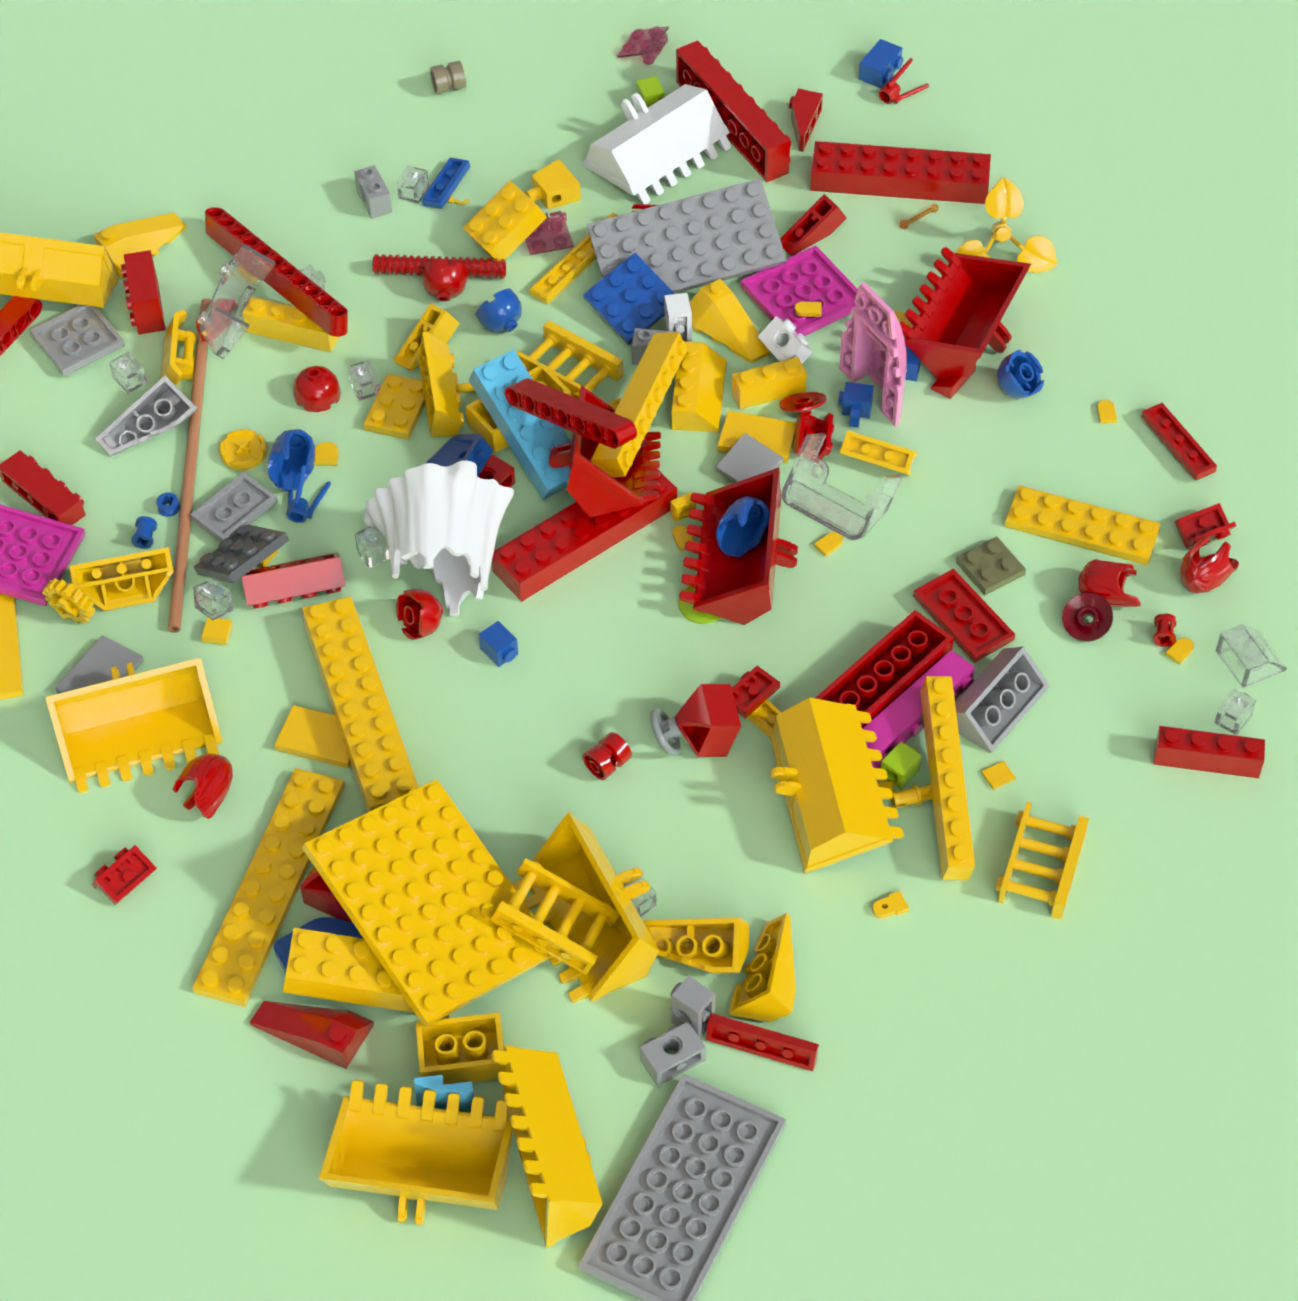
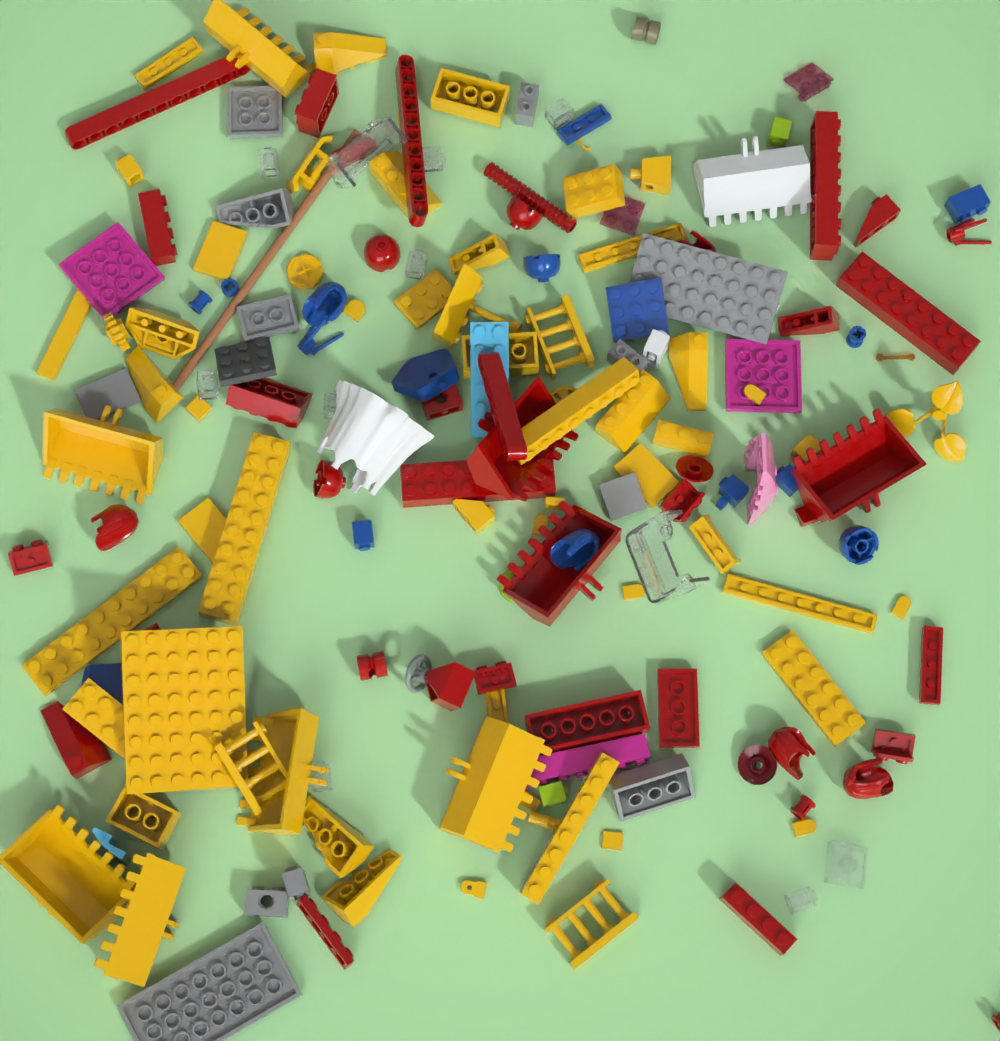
camera: 30 degrees right, 20 degrees up
(131, 478) = (220, 250): none -> yellow tile
(153, 633) = (154, 388): none -> yellow wedge
(308, 212) = (470, 97): none -> yellow brick
(604, 560) = (475, 513): none -> yellow slope
(777, 335) = (716, 413): white brick -> none
(867, 218) = (860, 333): none -> blue bush
(990, 565) = (727, 679): olive plate -> none
(1004, 462) = (799, 603): none -> yellow tile

